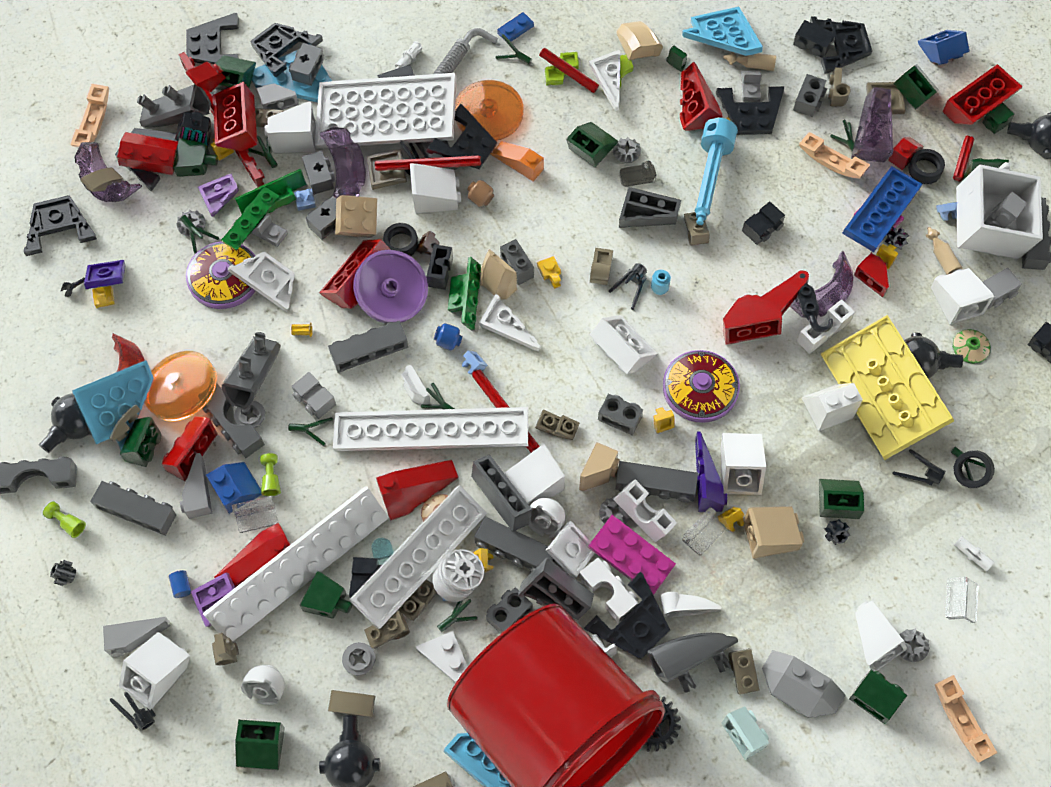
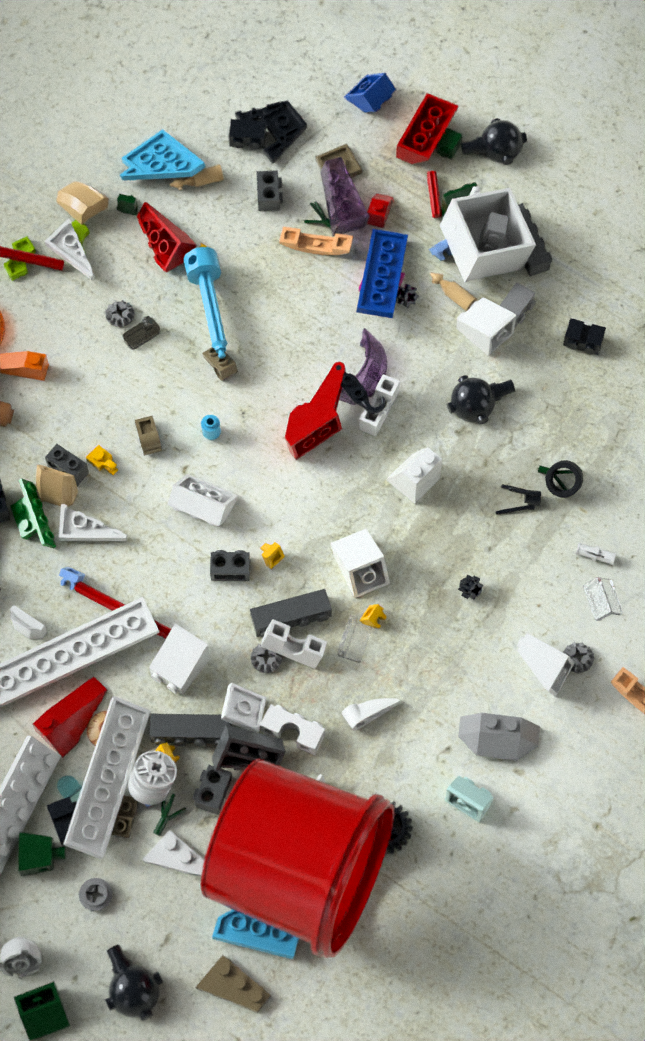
camera: 25 degrees left, 0 degrees up
(351, 703) = (108, 936): dark tan slope -> none
(393, 629) = (115, 852): dark tan plate -> none
(438, 397) = (51, 623): dark green plant -> none
(447, 336) = (35, 563): blue head -> none
(501, 493) = (155, 685): dark grey brick -> none
(547, 517) = (206, 689): white cylinder -> none
(558, 426) = (176, 602): dark tan slope -> none
(591, 143) = (83, 321): dark green slope -> none
(600, 467) = (235, 622): tan slope -> none
(631, 553) = (299, 689): dark pink plate -> none
(635, 274) = (184, 429): black plant -> none
(640, 628) = (337, 748): black wing -> none
(648, 209) = (167, 362): dark grey wedge -> none
(682, 654) = (386, 753): dark grey piece -> none
(701, 386) = (291, 508): dish -> none
(709, 485) = (339, 594): dark purple wedge -> none
(744, 671) = (444, 745): dark tan plate -> none
(751, 86) = (208, 202): light grey slope -> none
(752, 117) = (223, 233): black wing -> none
(764, 223) = (279, 333): black brick -> none
(772, 531) = (414, 611): tan slope -> none
(839, 91) = (291, 173): dark tan plate -> none
(841, 499) = (461, 556): dark green slope -> none
(873, 273) = (400, 337): red slope -> none
(878, 696) = (567, 714): dark green slope -> none
(887, 254) = (404, 315): yellow tile -> none
(896, 394) = (471, 442): light yellow piece -> none
(916, 86) = (362, 143): dark green slope -> none
(929, 155) = (404, 204): black tyre -> none
(971, 353) = (517, 374): tan dish -> none

